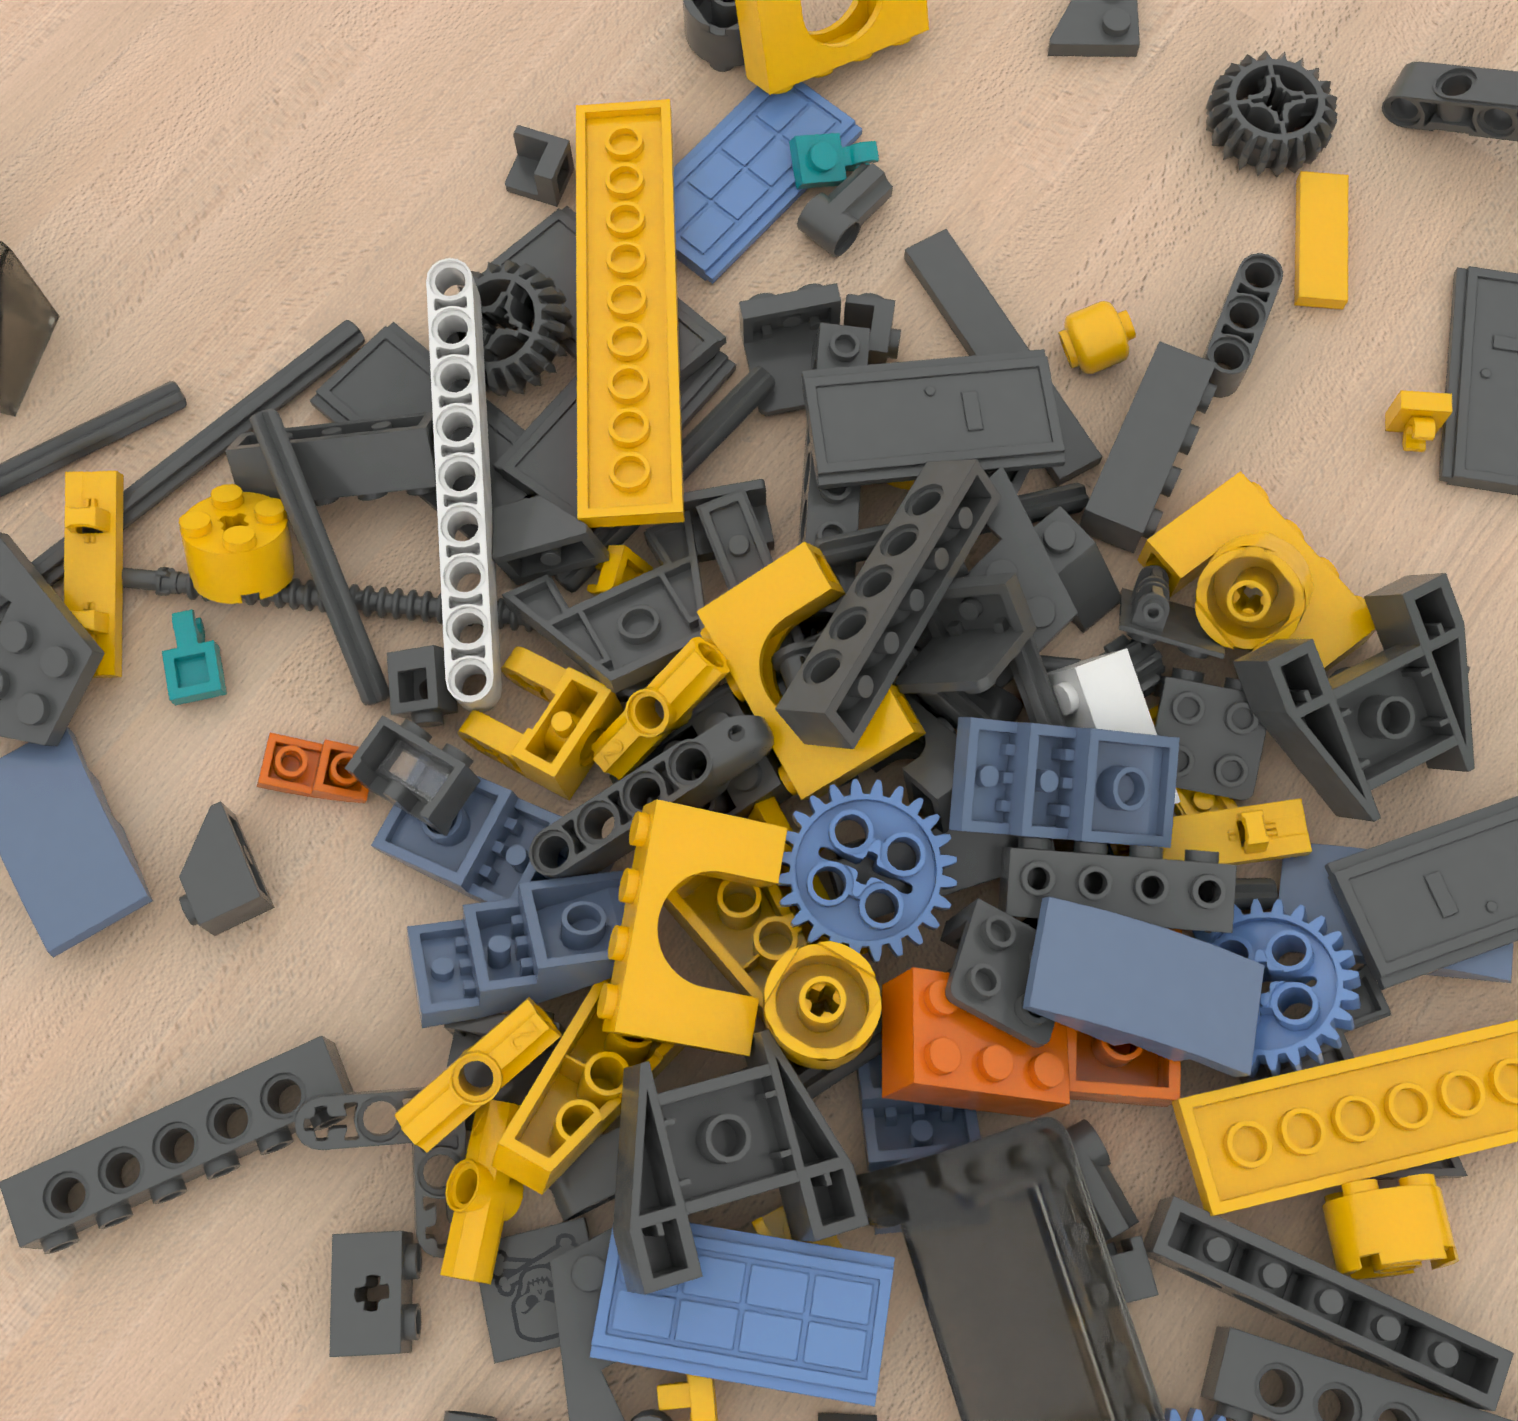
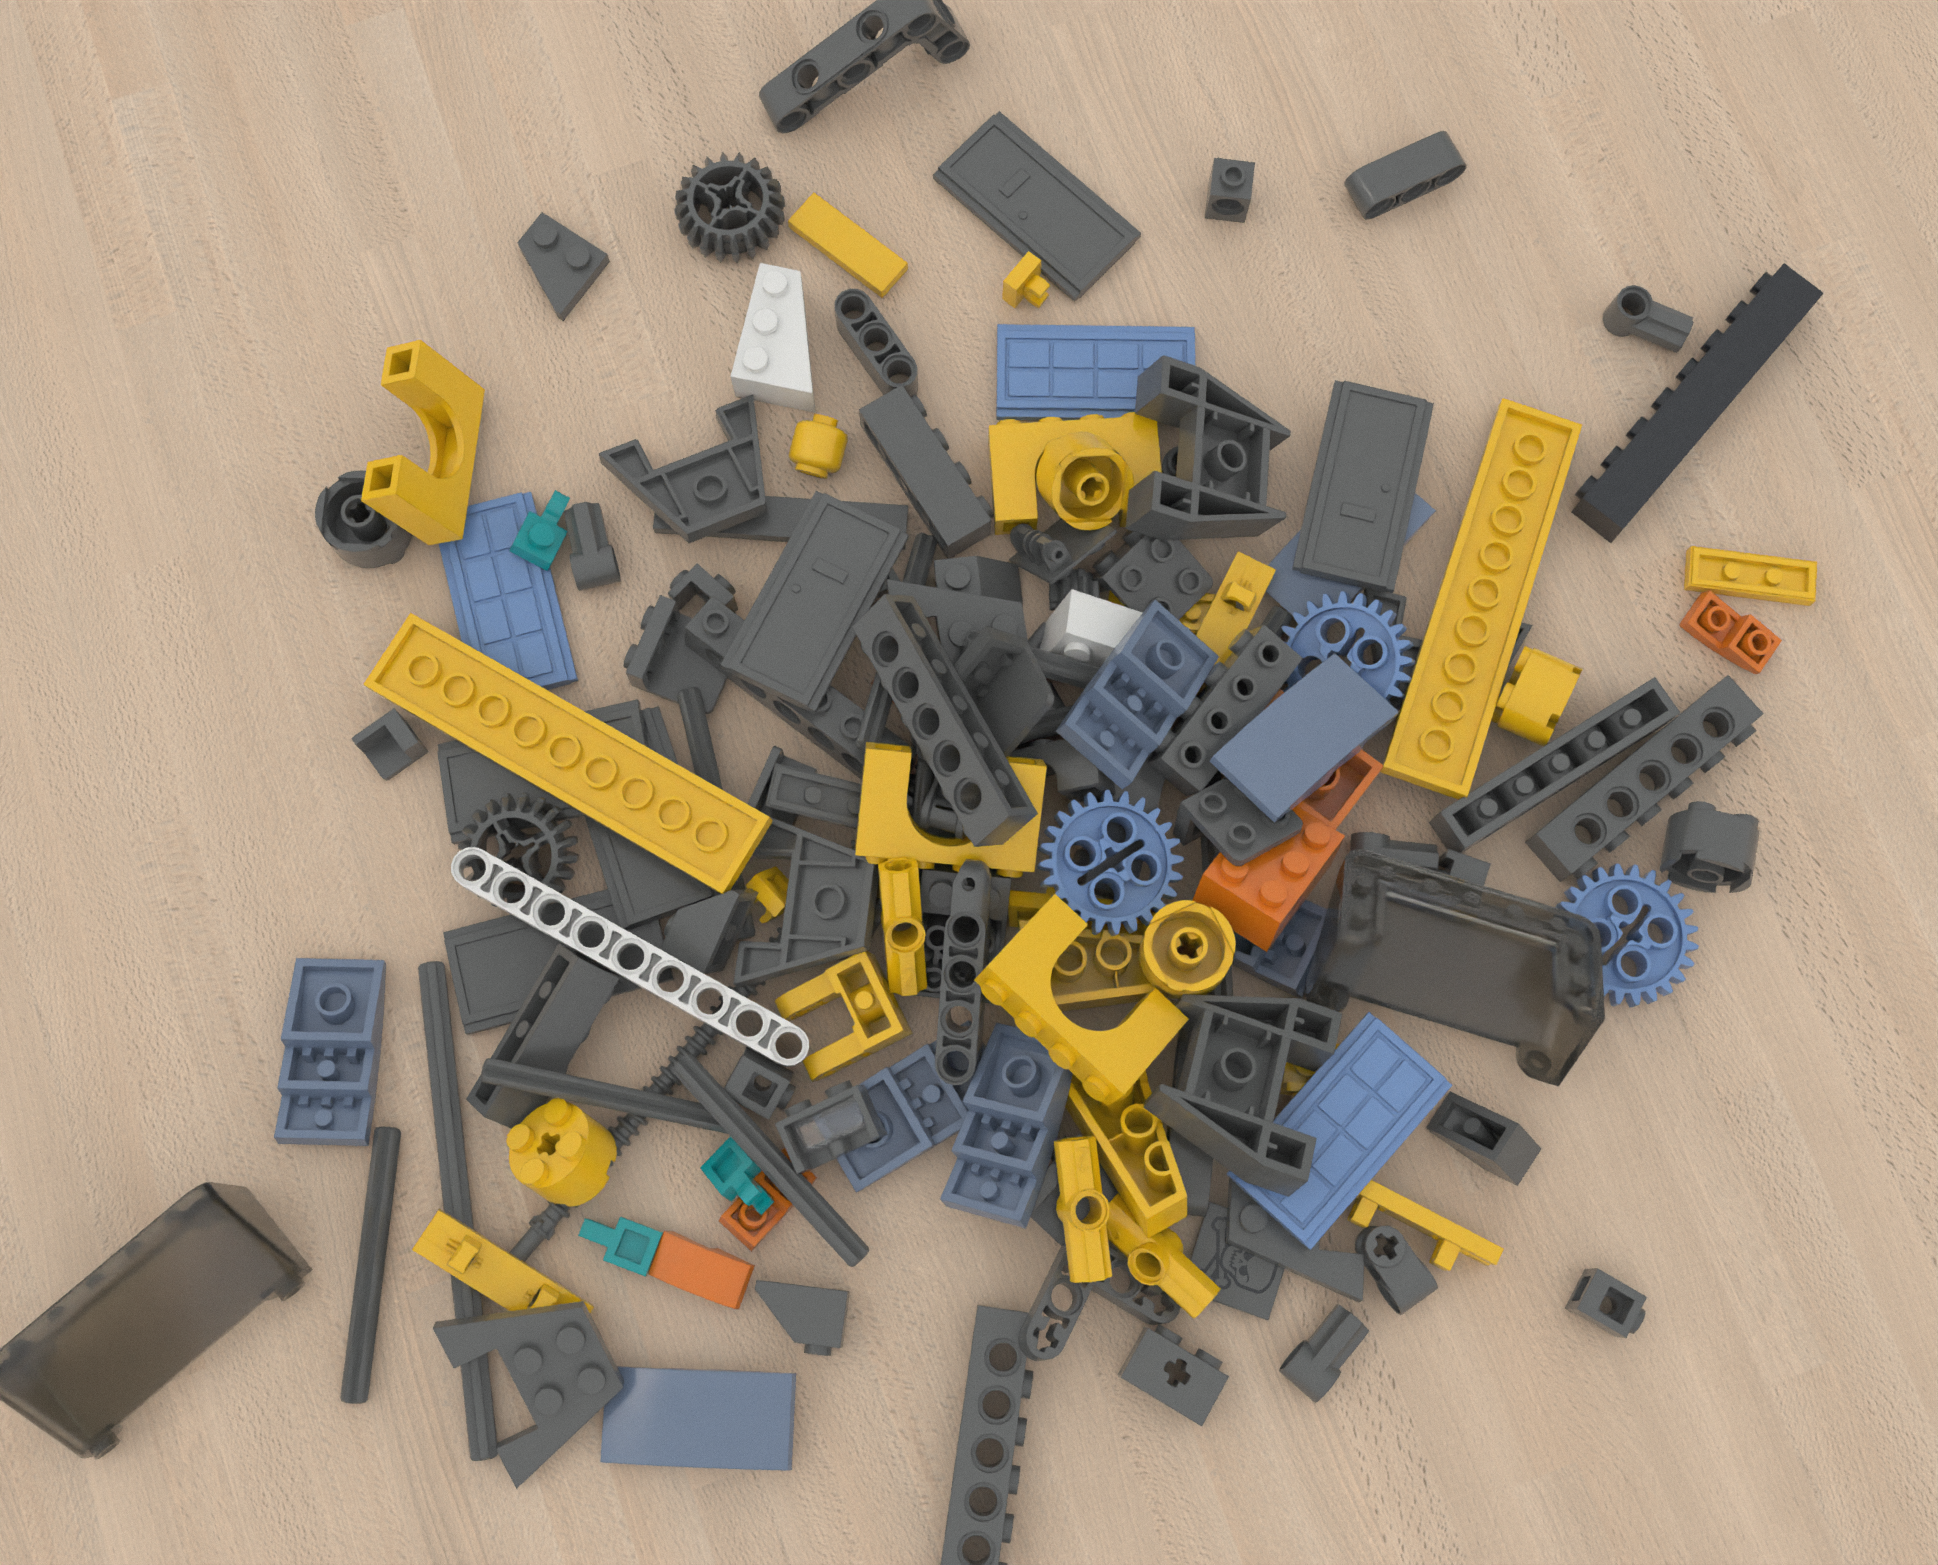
camera: 60 degrees left, 5 degrees up
(205, 750) = (701, 1270): none -> orange slope
(222, 301) = (331, 1052): none -> sand blue slope
(316, 717) = (734, 1175): none -> teal plate
(348, 738) = (770, 1160): none -> dark grey axle
(978, 265) = (704, 489): none -> dark grey wing
(1170, 232) = (774, 343): none -> white wedge
(1372, 523) = (1079, 367): none -> medium blue piece

